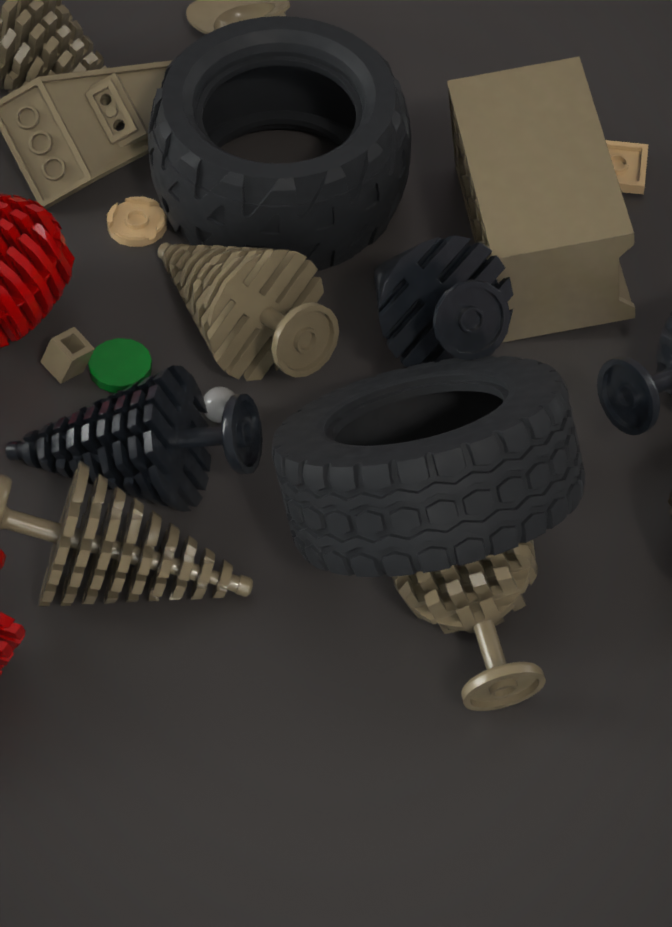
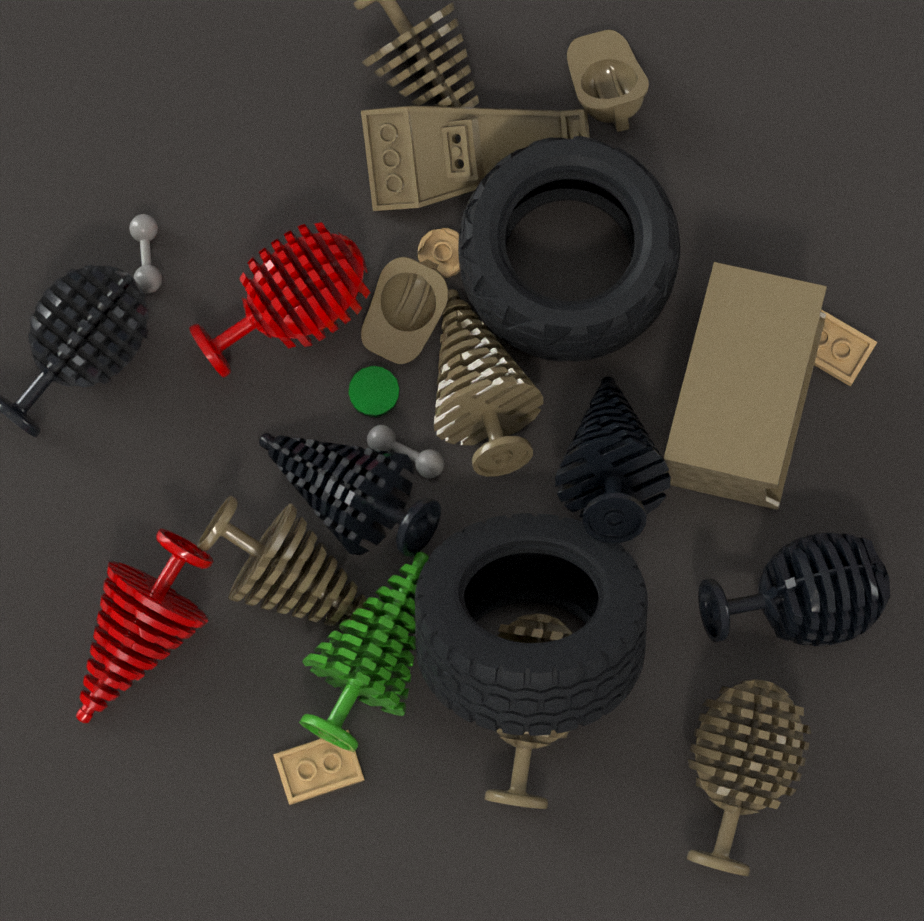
camera: 25 degrees right, 25 degrees up
(67, 355) = (334, 374): dark tan brick -> none
(120, 267) = (404, 309): none -> dark tan piece
(236, 760) = (316, 769): none -> tan tile
(248, 595) = (367, 661): none -> bright green plant

